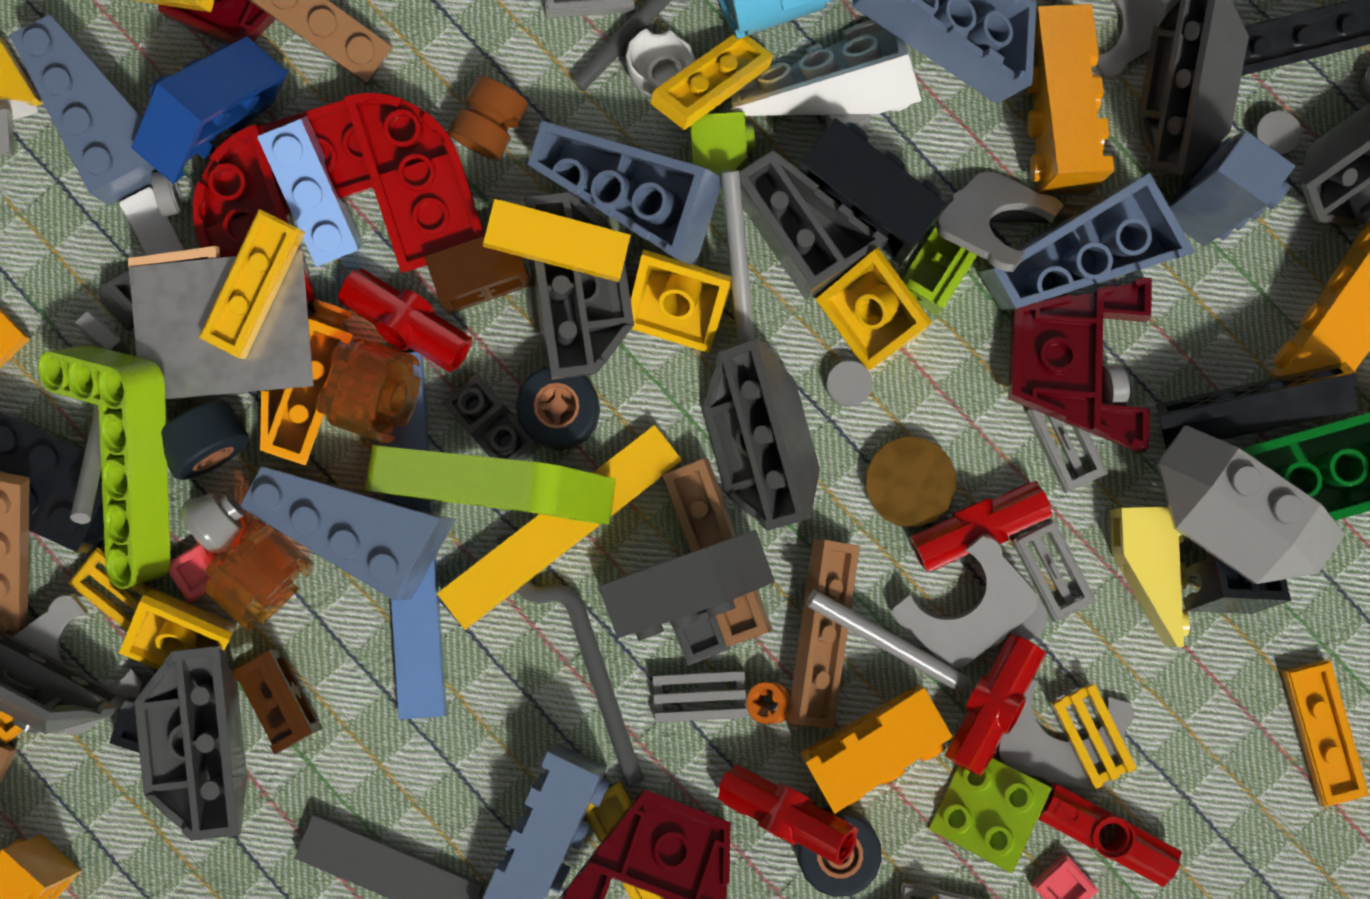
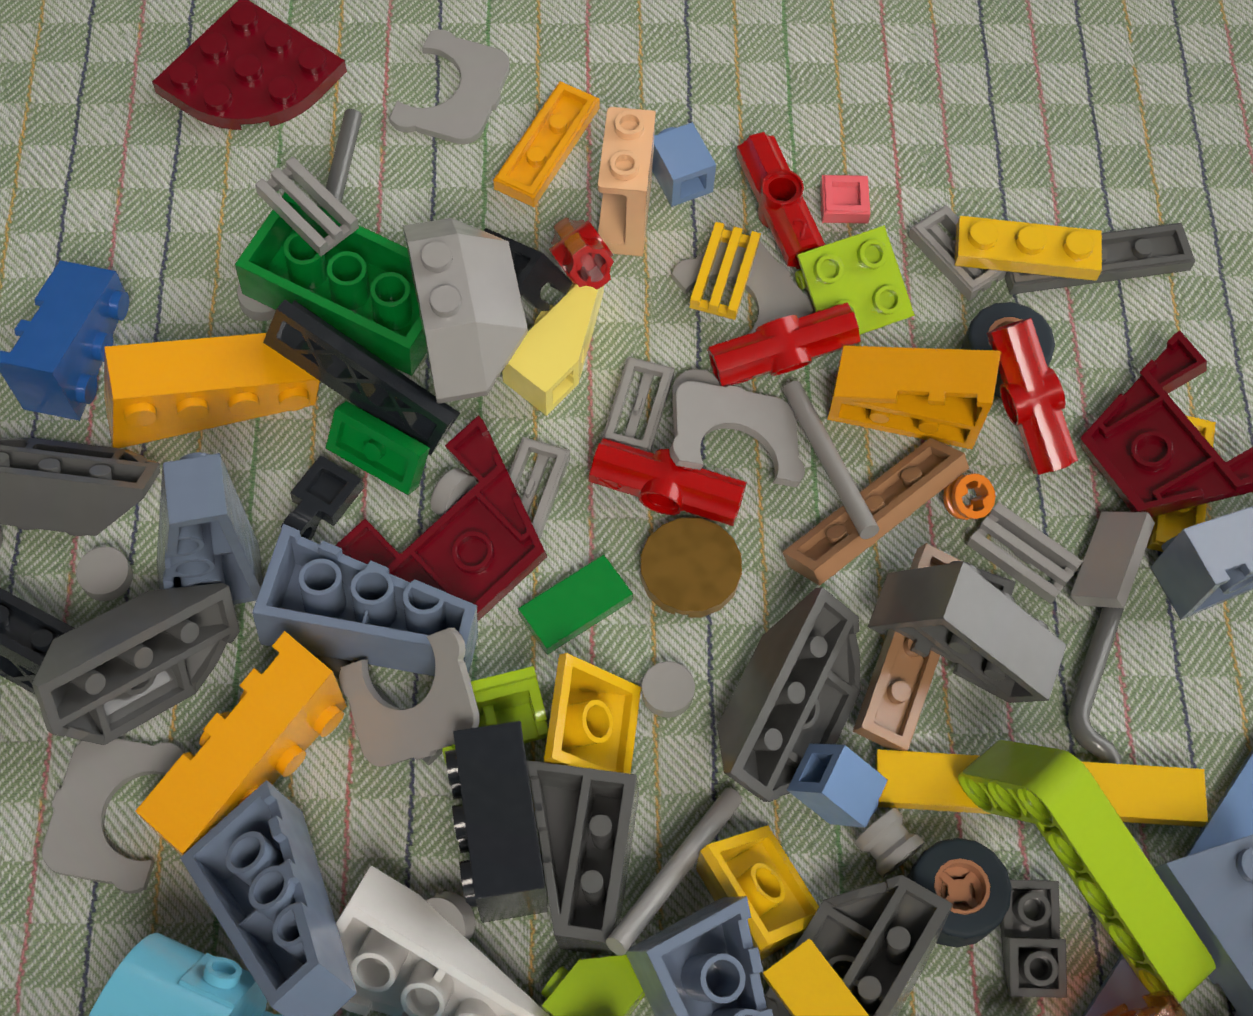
camera: 145 degrees left, 20 degrees down
(624, 402) = (889, 842): none -> light grey wheel
(636, 741) = (1112, 559): none -> light grey tile
(686, 406) = (837, 785): none -> medium blue brick
(960, 387) = (575, 604): none -> green tile
(1194, 310) = (322, 494): none -> black plate
(1194, 372) = (377, 448): none -> green plate
(1201, 634) = (581, 253): none -> red piece
(1209, 800) = (683, 164): none -> medium blue brick
(1231, 732) = (626, 179): none -> light nougat panel

